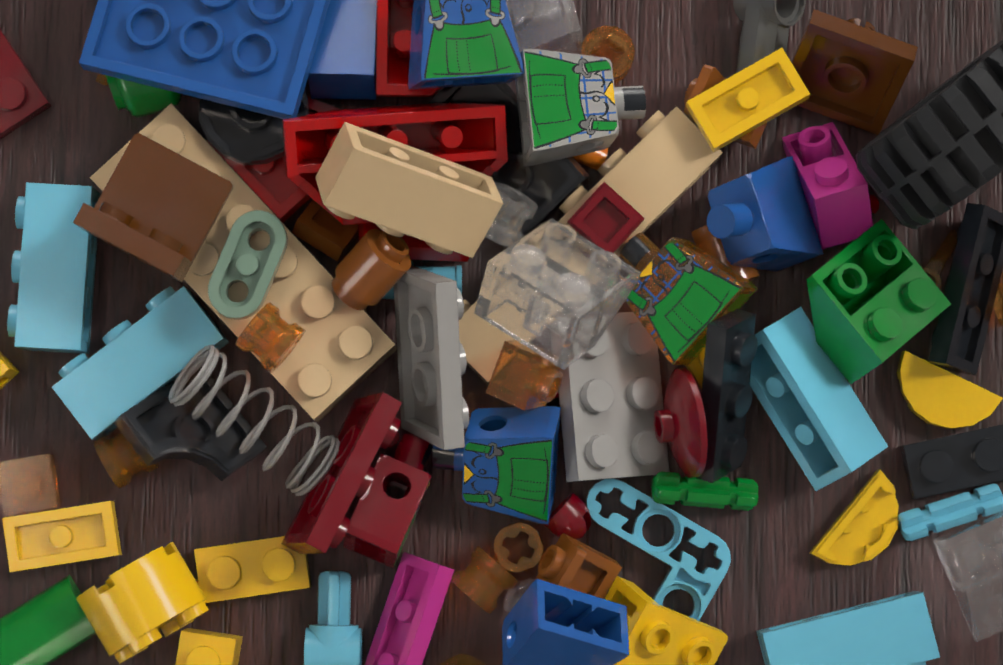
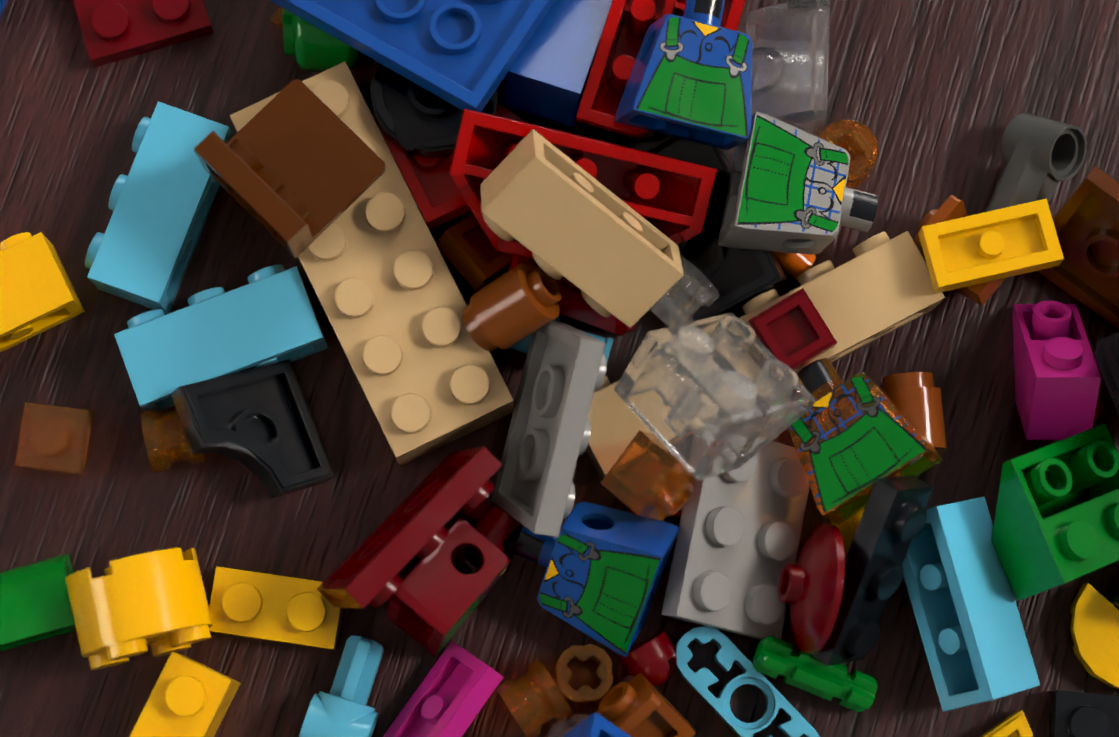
camera: 15 degrees right, 5 degrees down
(61, 536) = (72, 507): yellow plate -> none
(207, 359) = (281, 364): light grey piece -> none
(243, 264) = (371, 259): sand green plate -> none
(270, 337) = (375, 347): clear orange wheel -> none
(764, 218) = (971, 385): blue torso -> none

